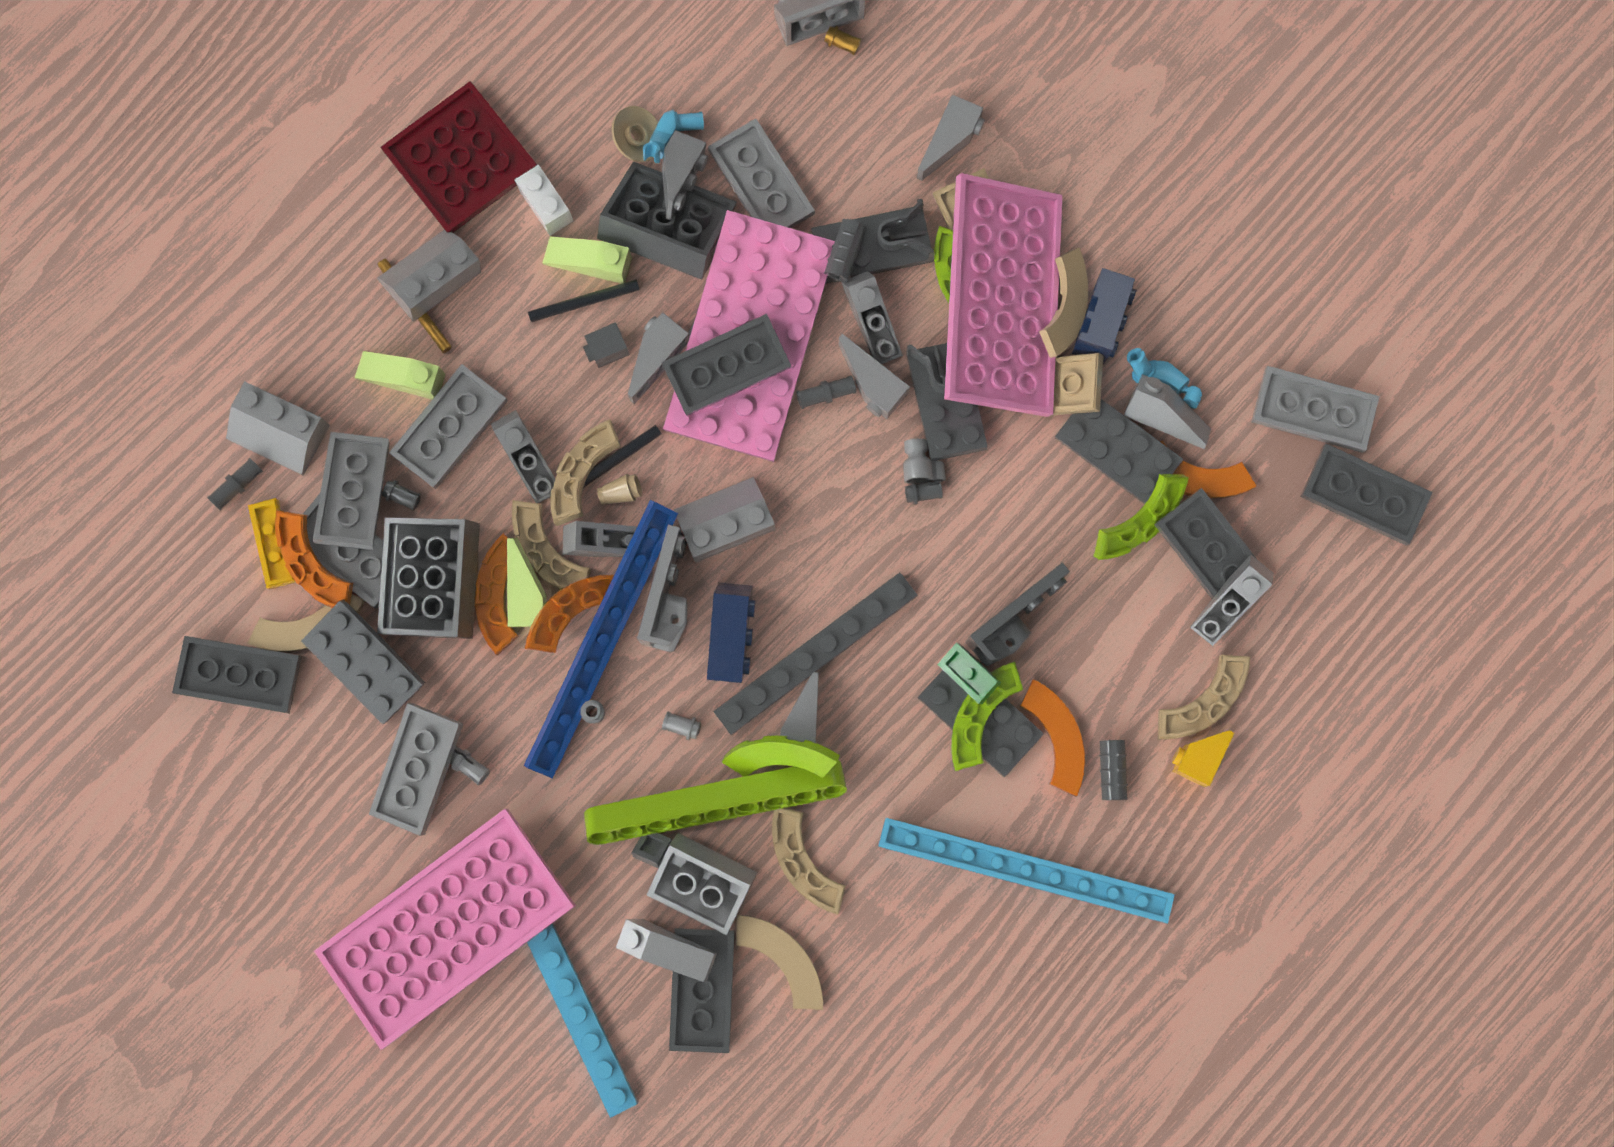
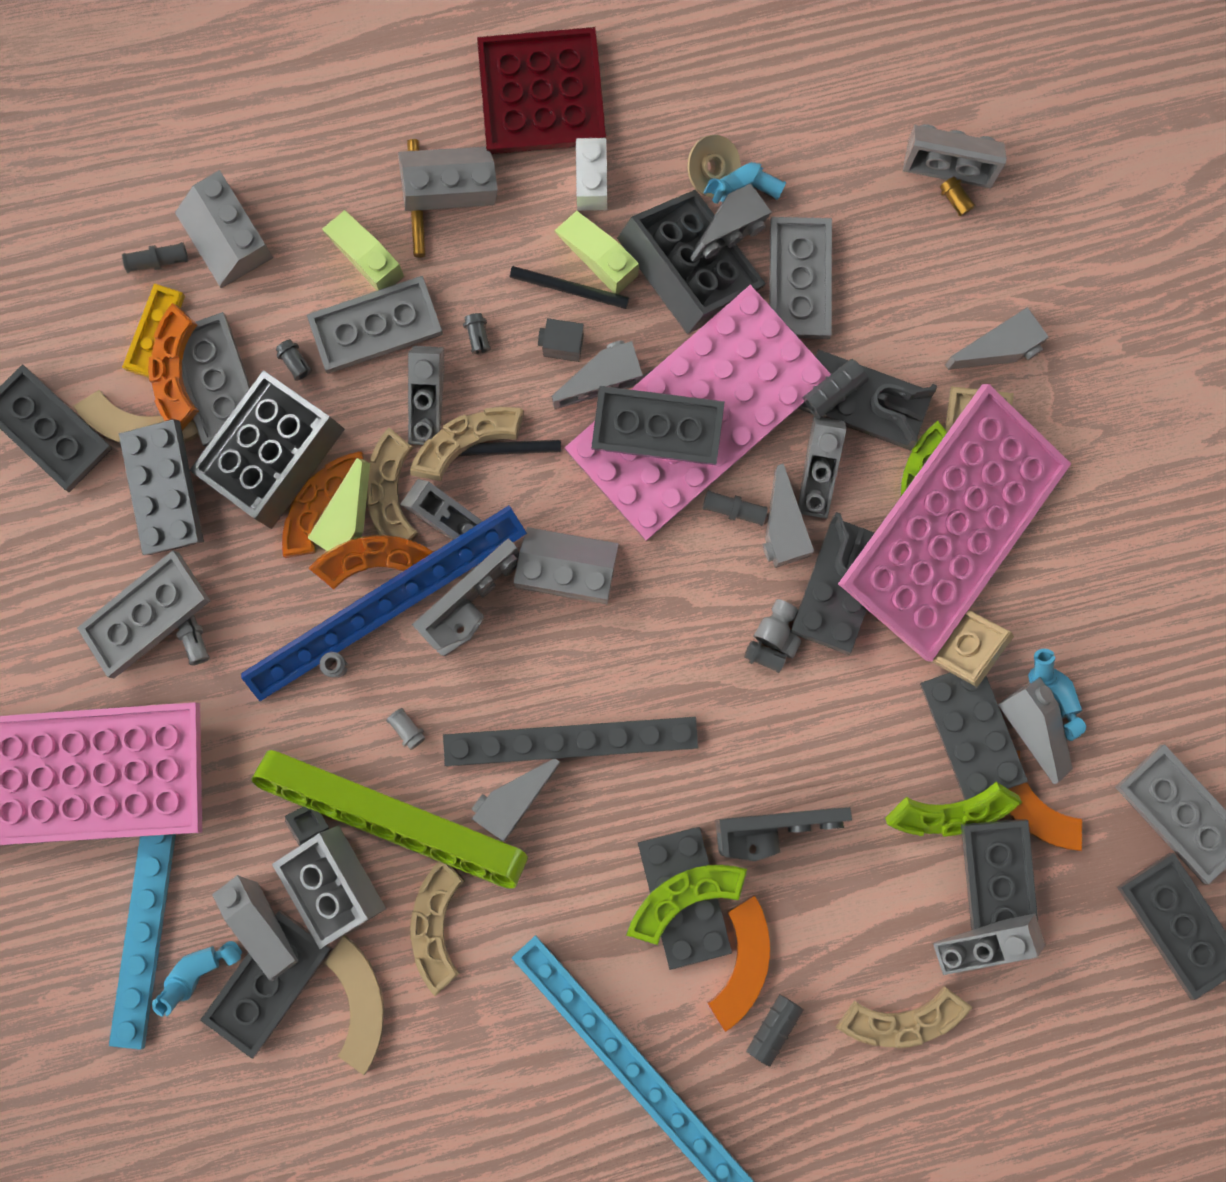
camera: 30 degrees right, 0 degrees up
(351, 491) = (250, 327): light grey plate -> none
(534, 382) = (477, 333): none -> dark grey pin
(620, 490) = (492, 480): tan cone -> none
(634, 1023) = (186, 974): none -> medium azure arm
(730, 632) = (504, 672): dark blue wedge -> none
(780, 751) = (475, 810): lime tile -> none
(969, 673) = (697, 853): plate -> none
(1069, 318) = (1004, 582): tan tile -> none
(1105, 314) = (1040, 600): dark blue wedge -> none
(1202, 758) = (866, 1073): yellow slope -> none

